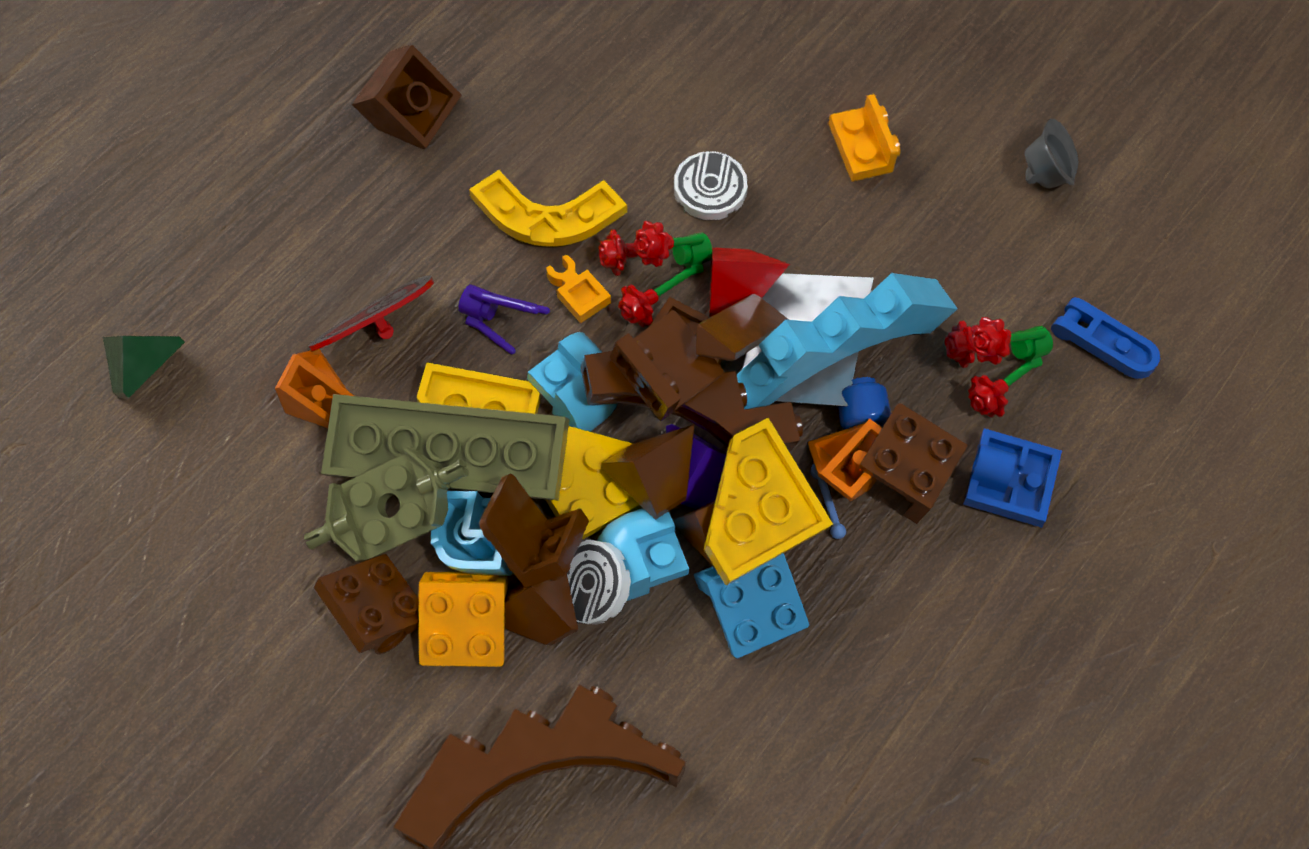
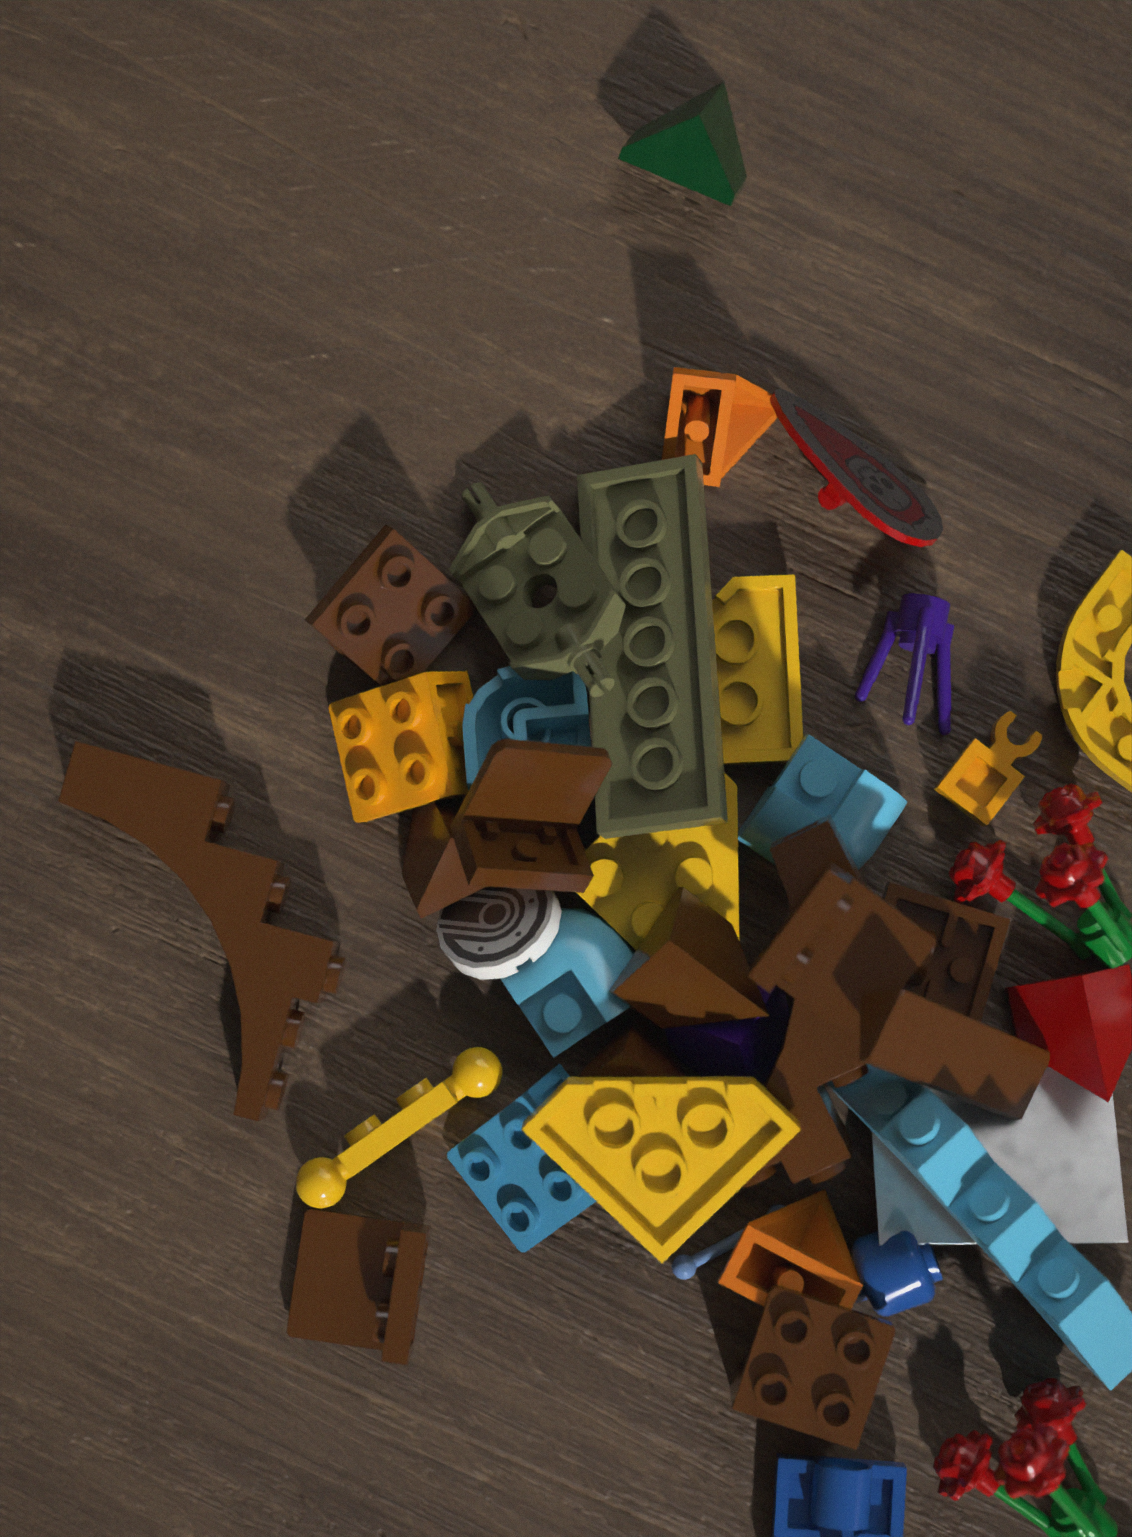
camera: 80 degrees right, 20 degrees up
(715, 698) = (324, 1180): none -> yellow plate
(808, 725) = (359, 1282): none -> reddish brown bracket

